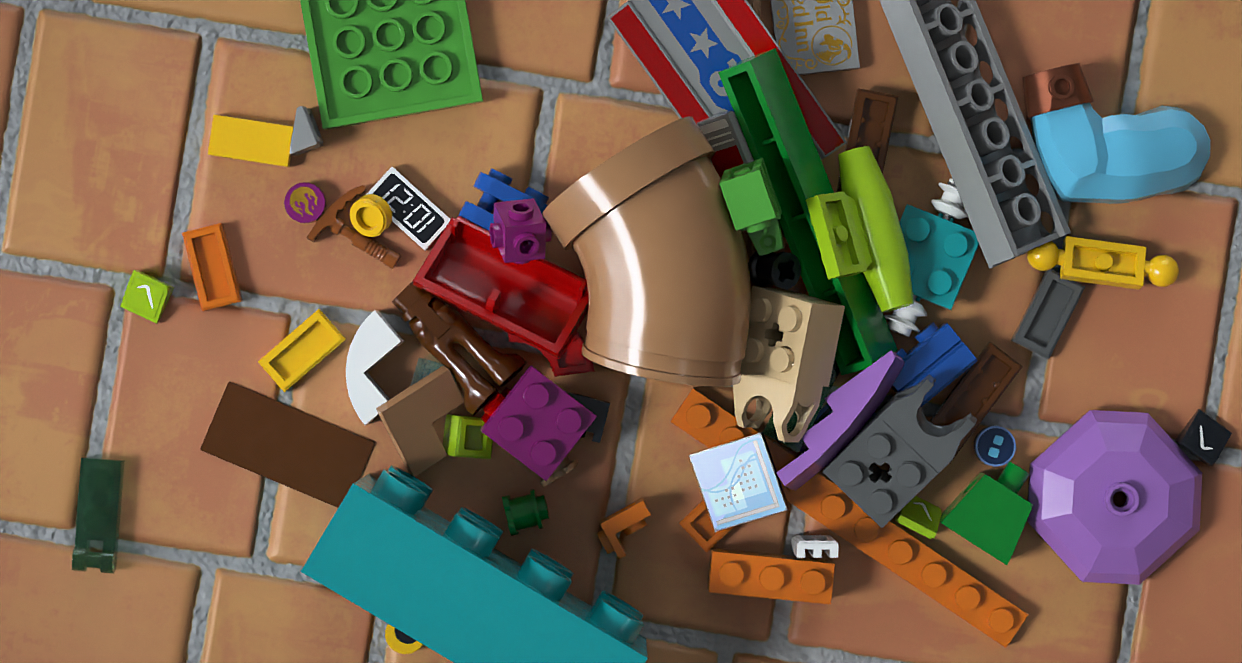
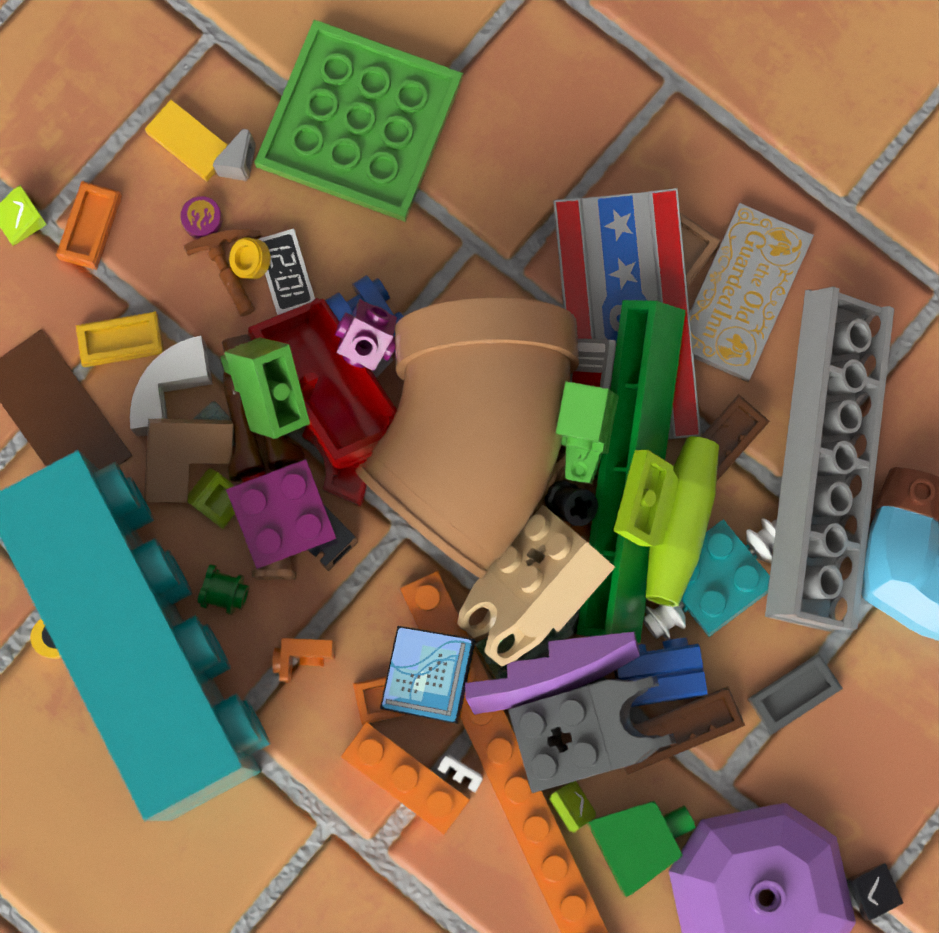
camera: 25 degrees right, 10 degrees down
(462, 324) = (267, 386): none -> bright green hinge
(994, 446) = (678, 784): dark blue tile -> none
(1104, 263) = (871, 676): yellow plate -> none

